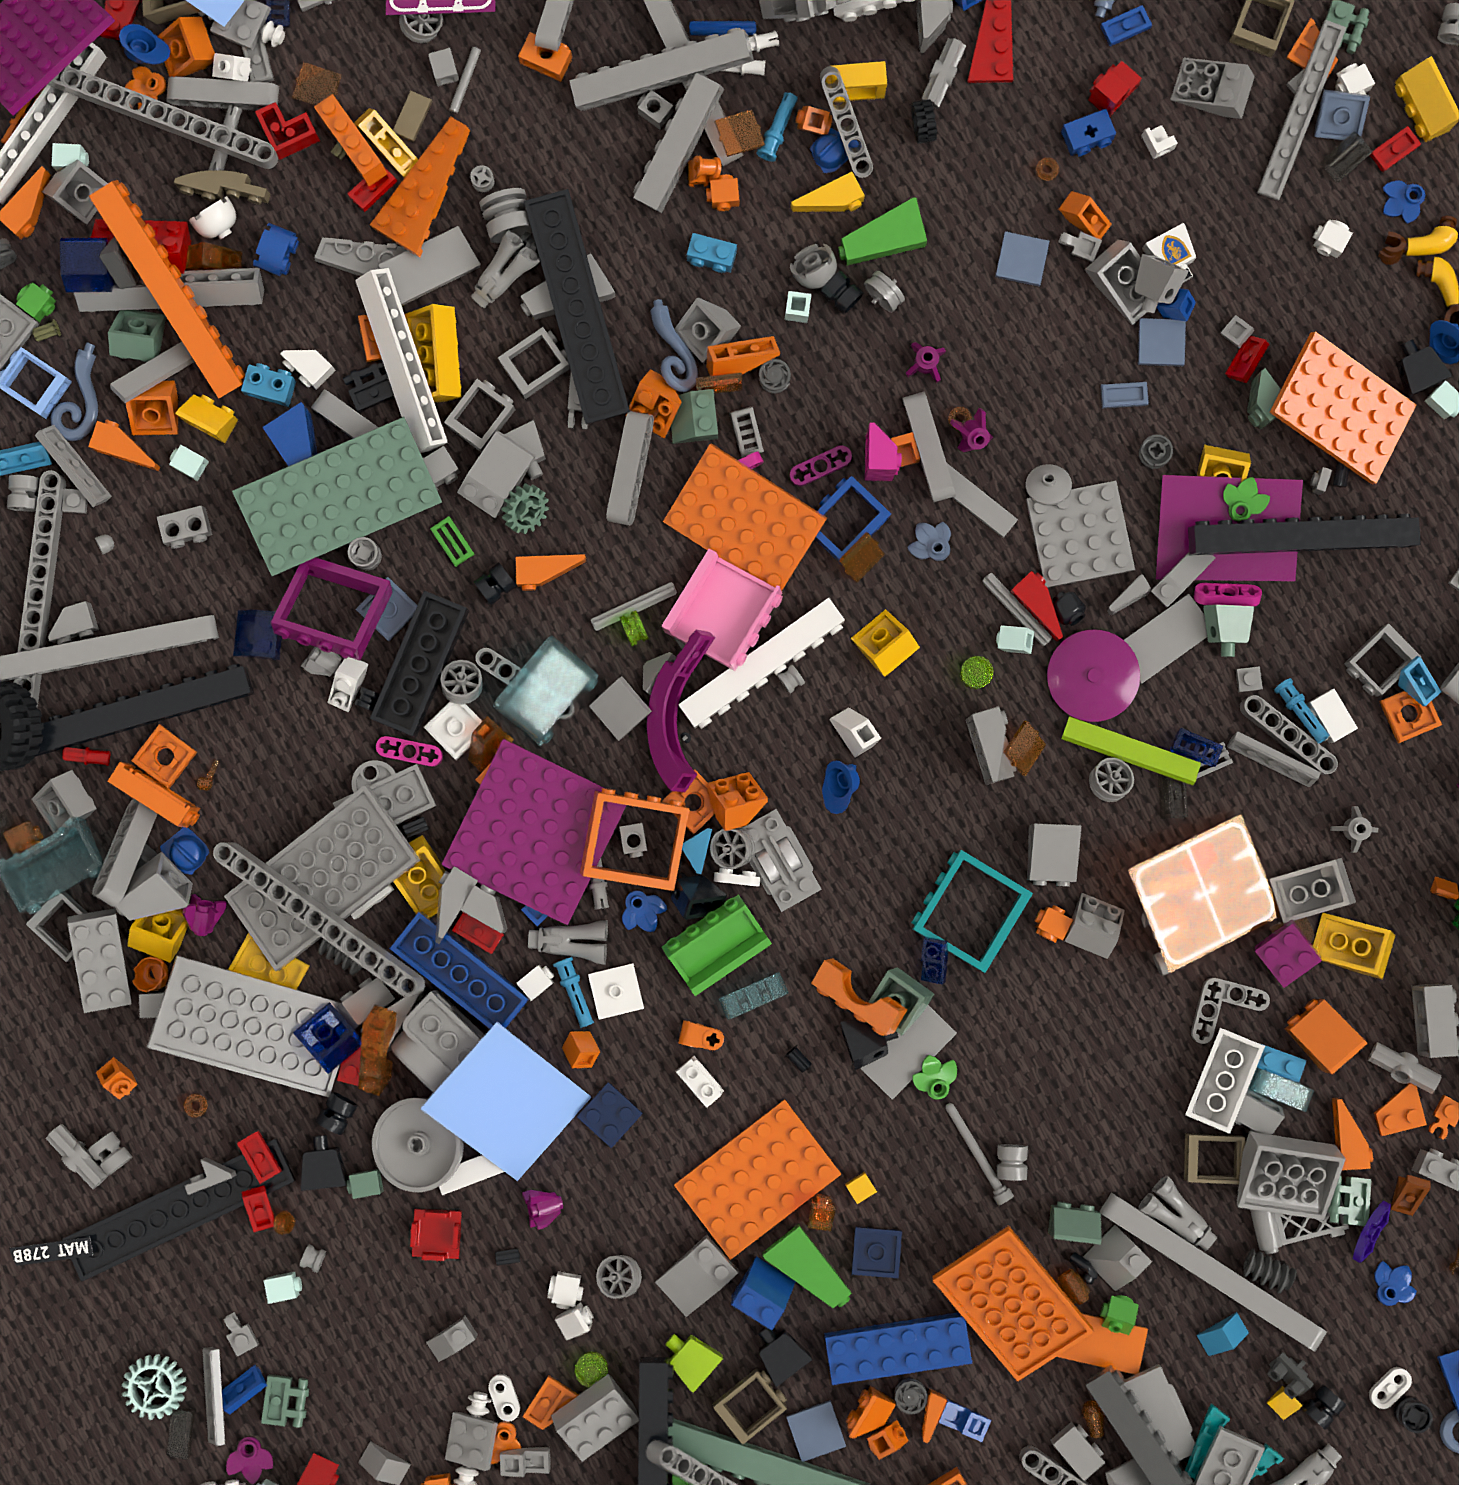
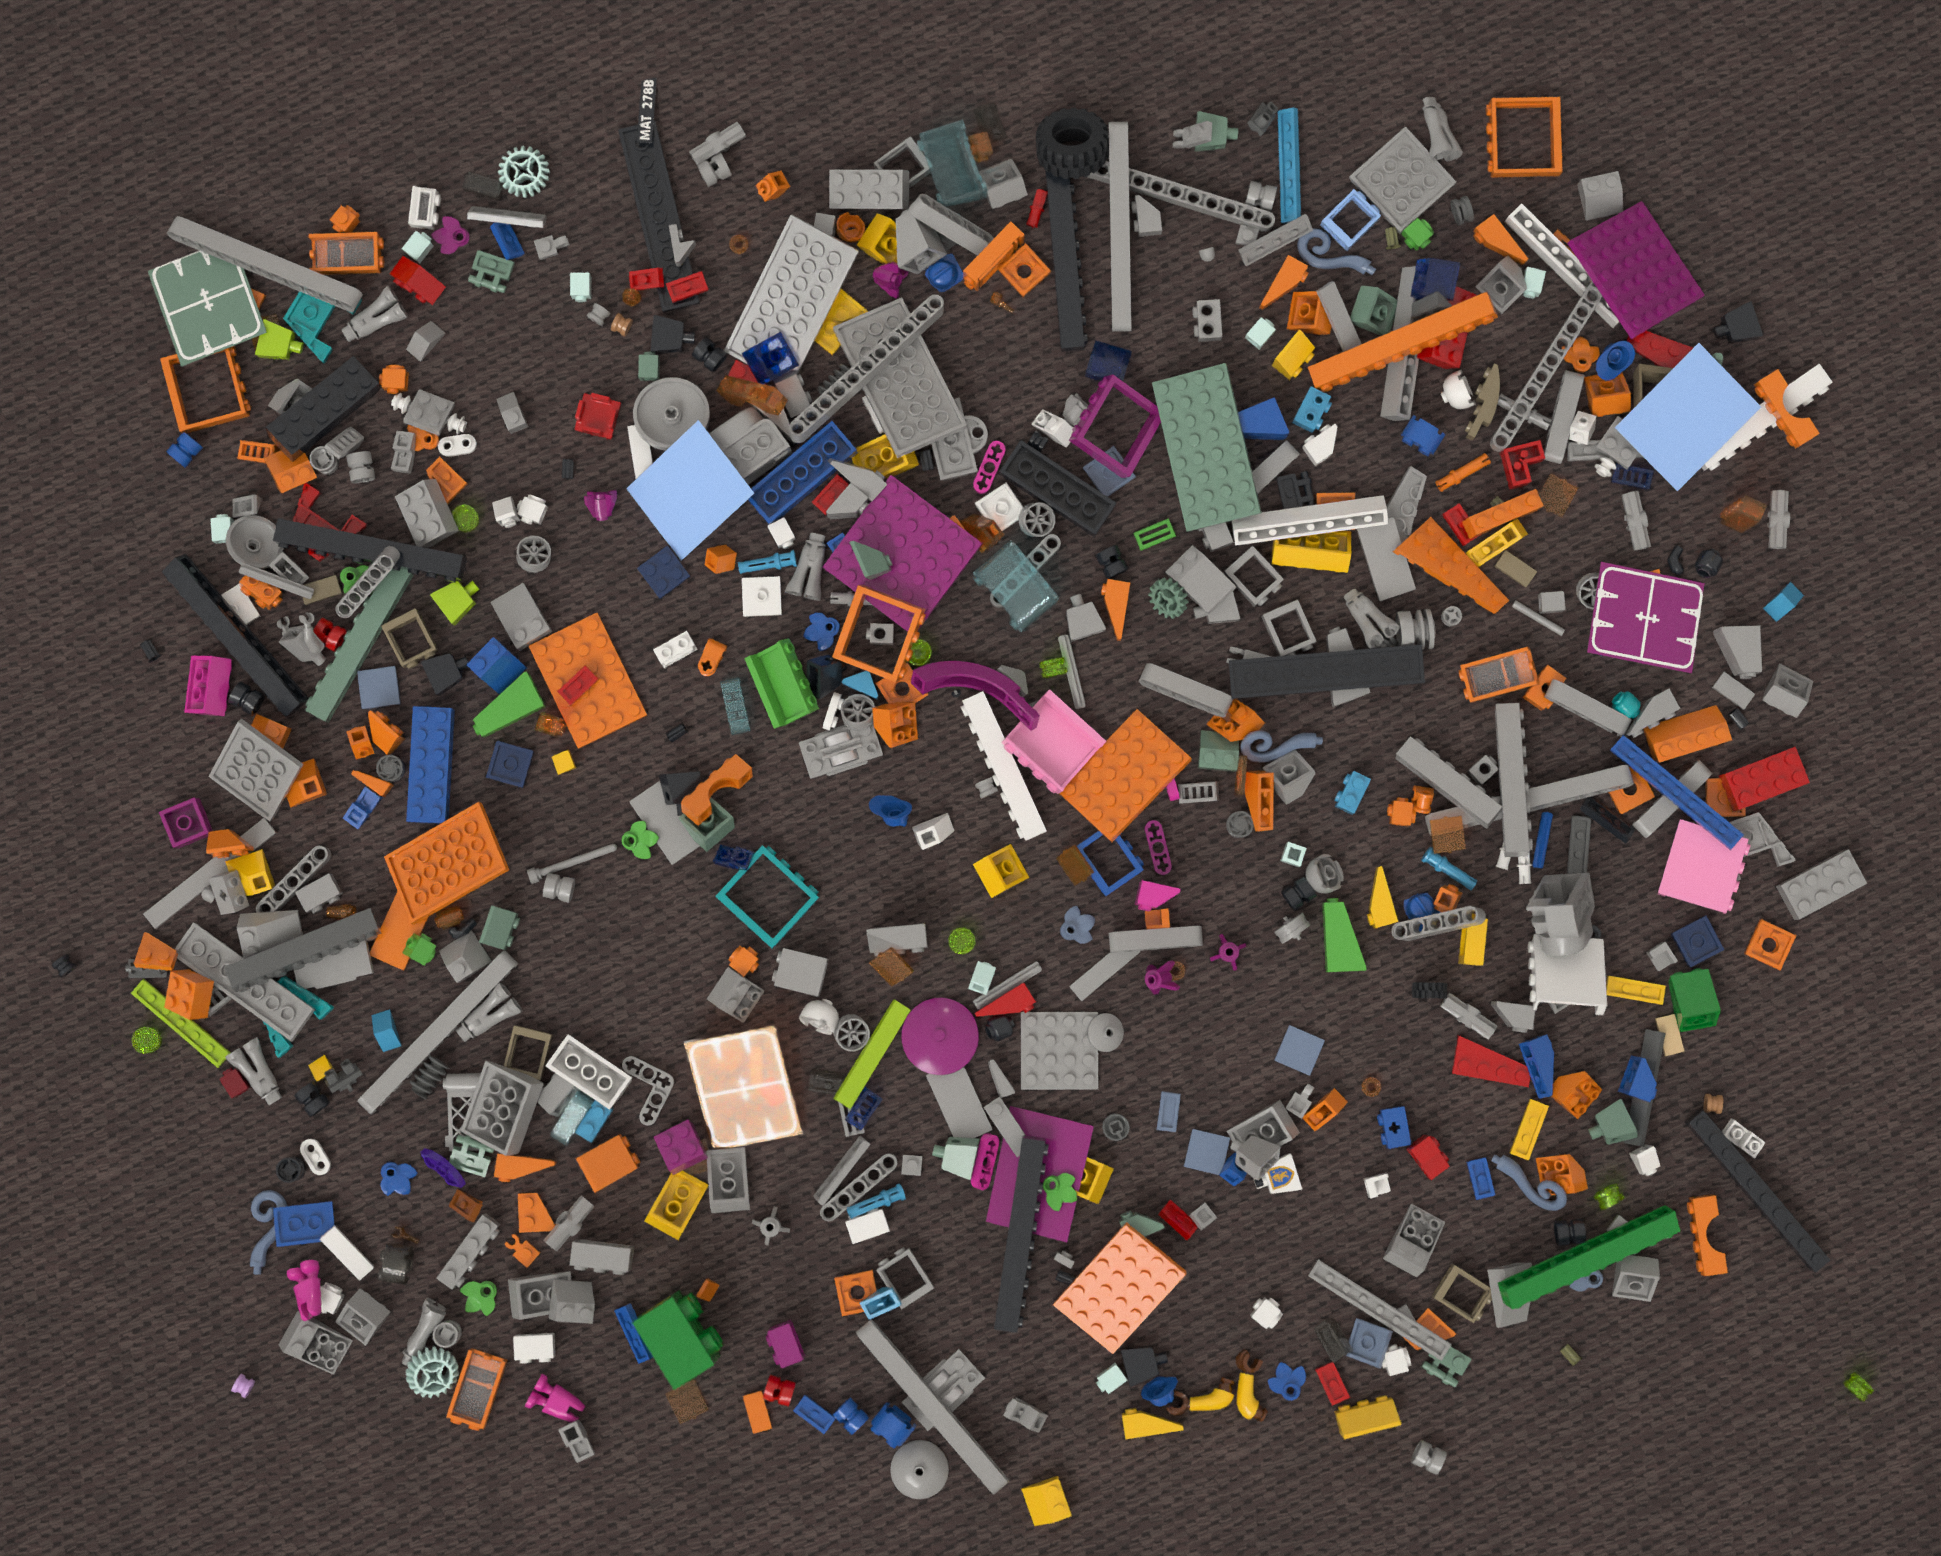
camera: 105 degrees right, 0 degrees up
(212, 257) = (1425, 384): clear orange slope -> none
(316, 204) = (1456, 476): none -> orange pin
(320, 1227) = (621, 324): none -> medium nougat wheel
(364, 553) = (1157, 461): light grey wheel -> none
(541, 109) = (1499, 674): none -> clear door
(549, 865) = (872, 562): none -> sand green slope
(569, 604) = (1083, 619): none -> light grey torso
(620, 708) = (989, 644): light grey tile -> none
(647, 786) = (921, 653): none -> clear neon green wheel
(767, 1189) = (578, 685): none -> red plate
(1099, 819) = (820, 1015): none -> white cylinder

